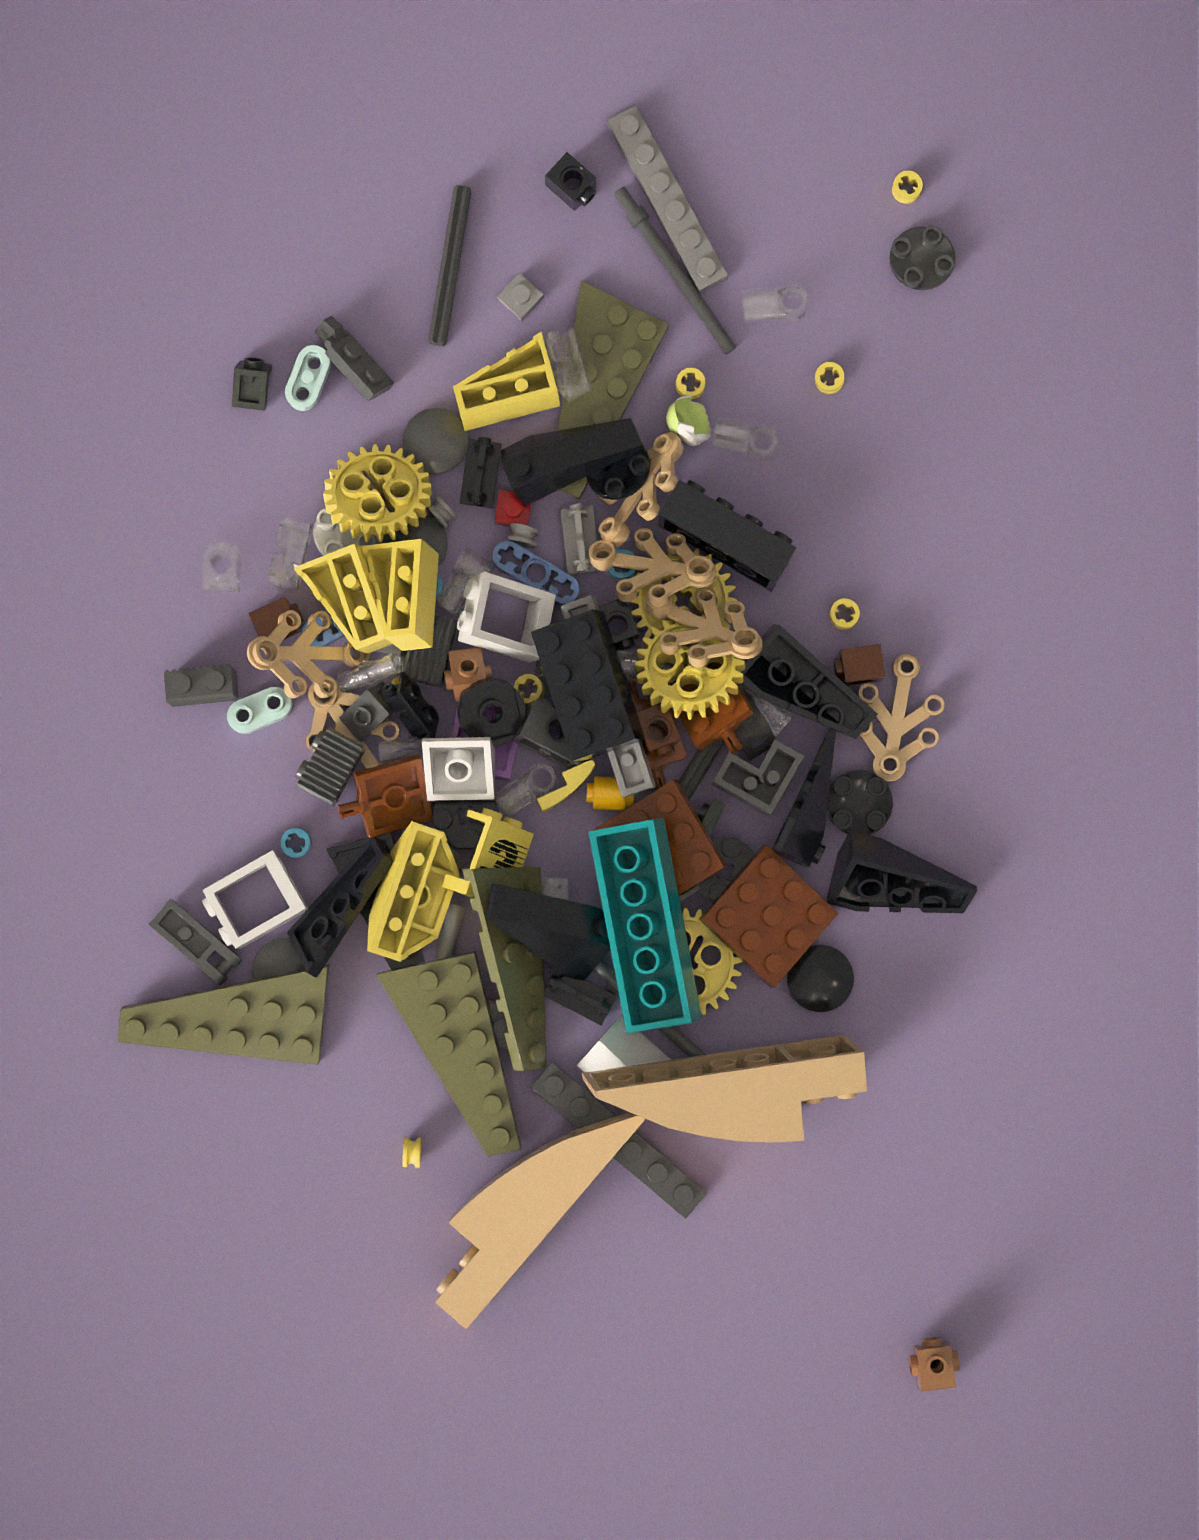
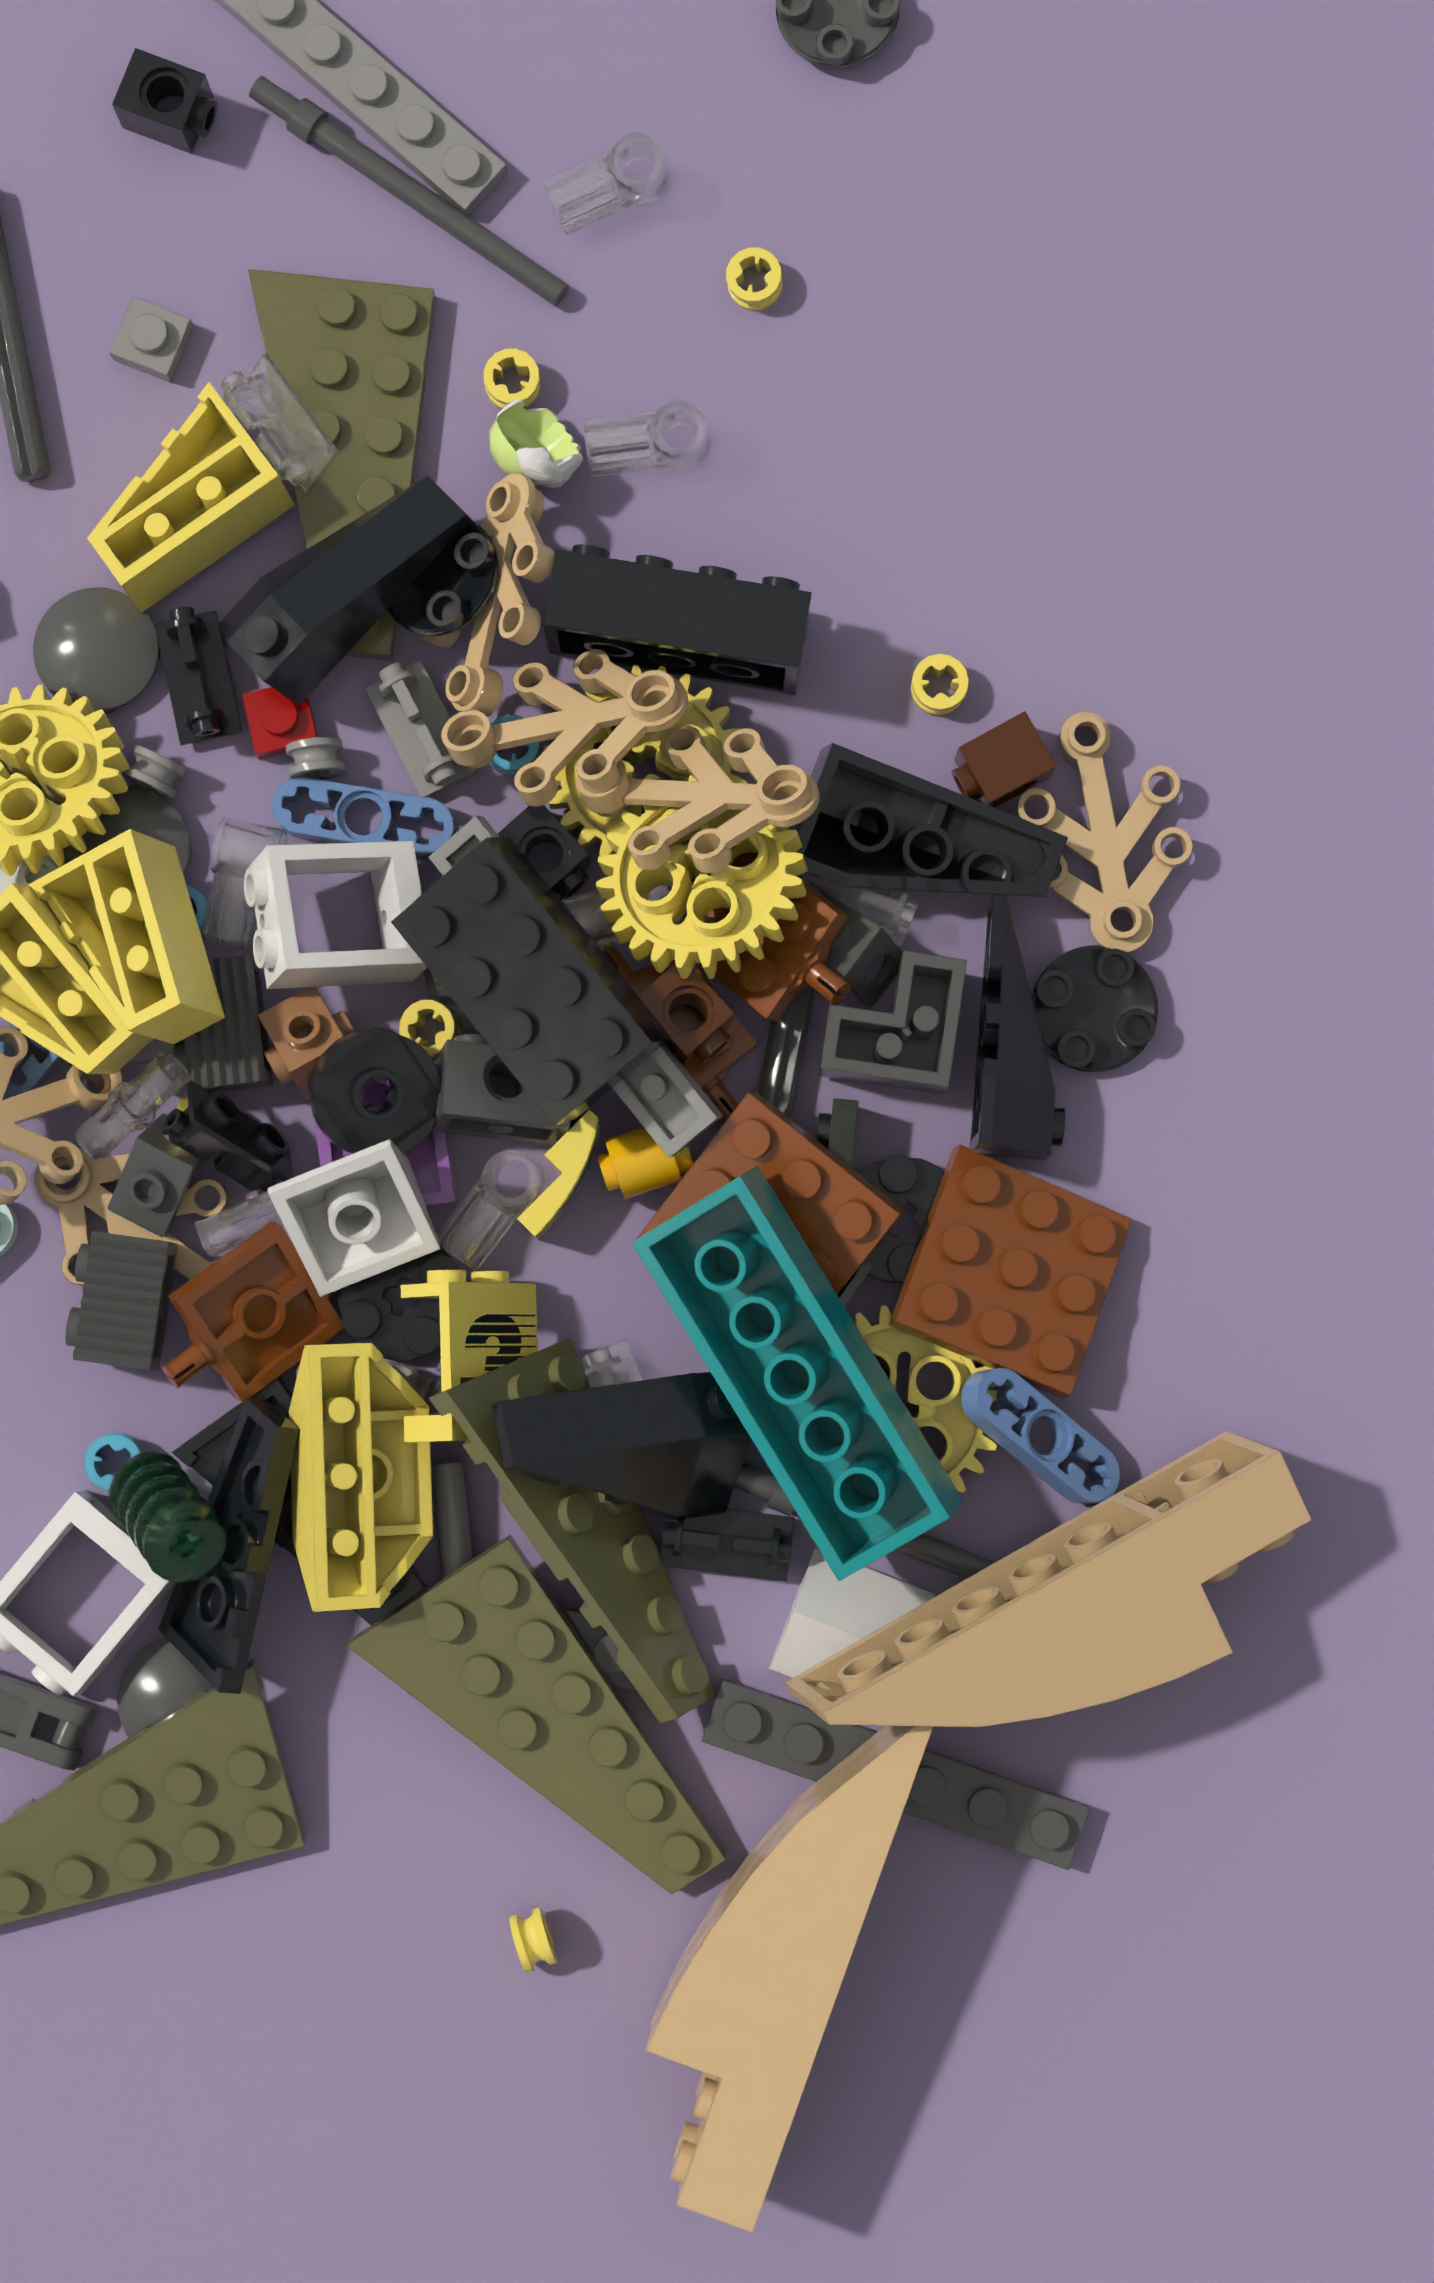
camera: 20 degrees left, 0 degrees up
(312, 879) = (166, 1517): none -> clear green piece
(739, 995) = (1013, 1431): none -> medium blue beam
(821, 979) = (1146, 1348): black dish -> none
(884, 875) = (1189, 1119): black wedge -> none

